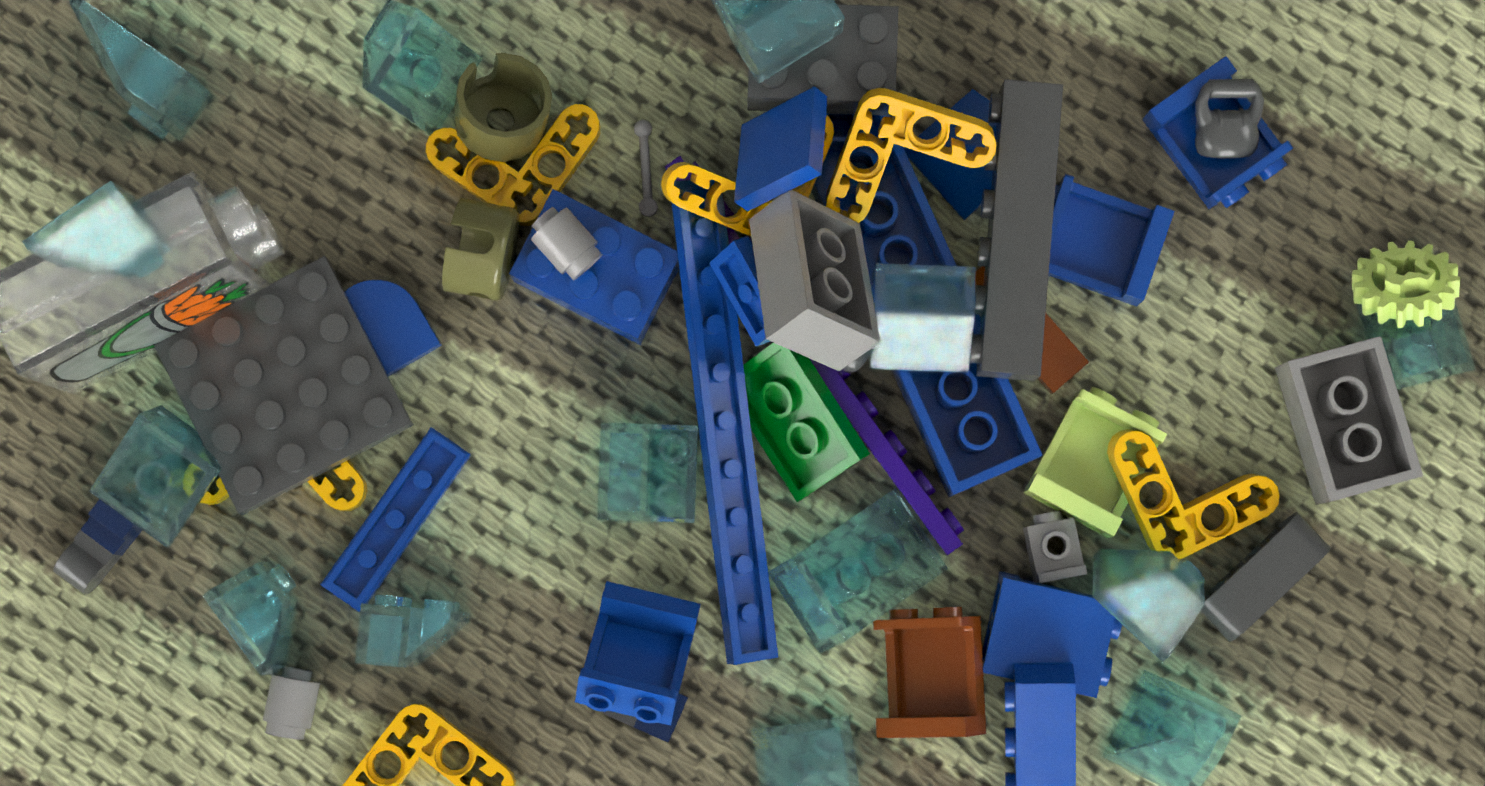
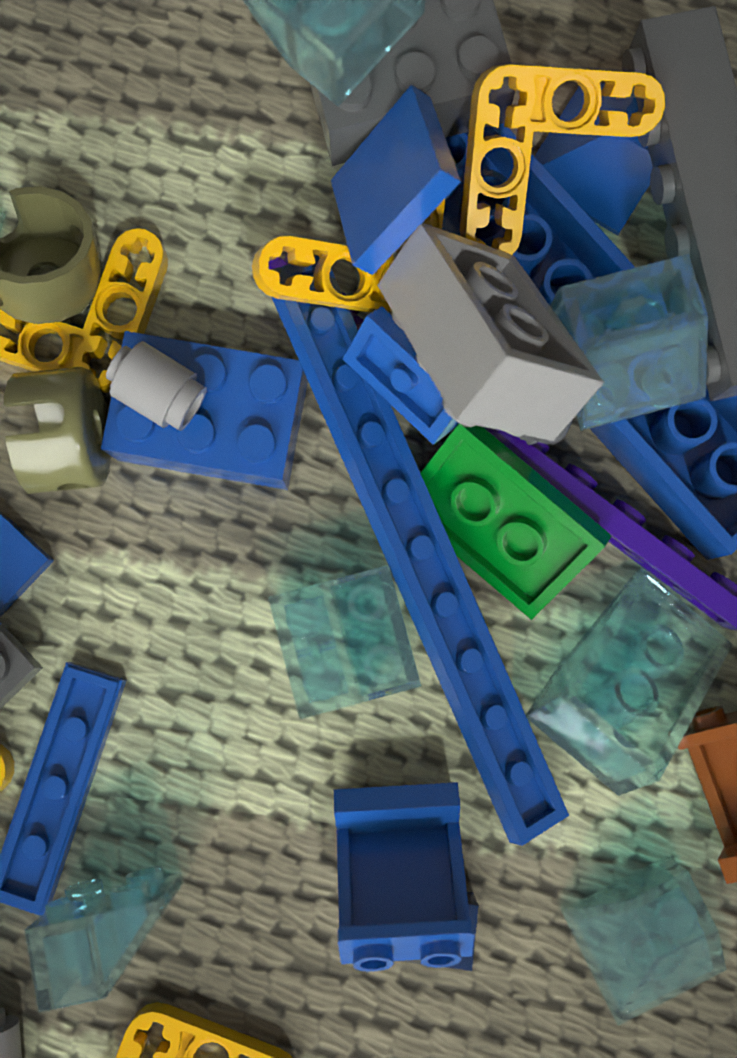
camera: 15 degrees left, 0 degrees up
(647, 206) = (248, 325): light grey hinge -> none

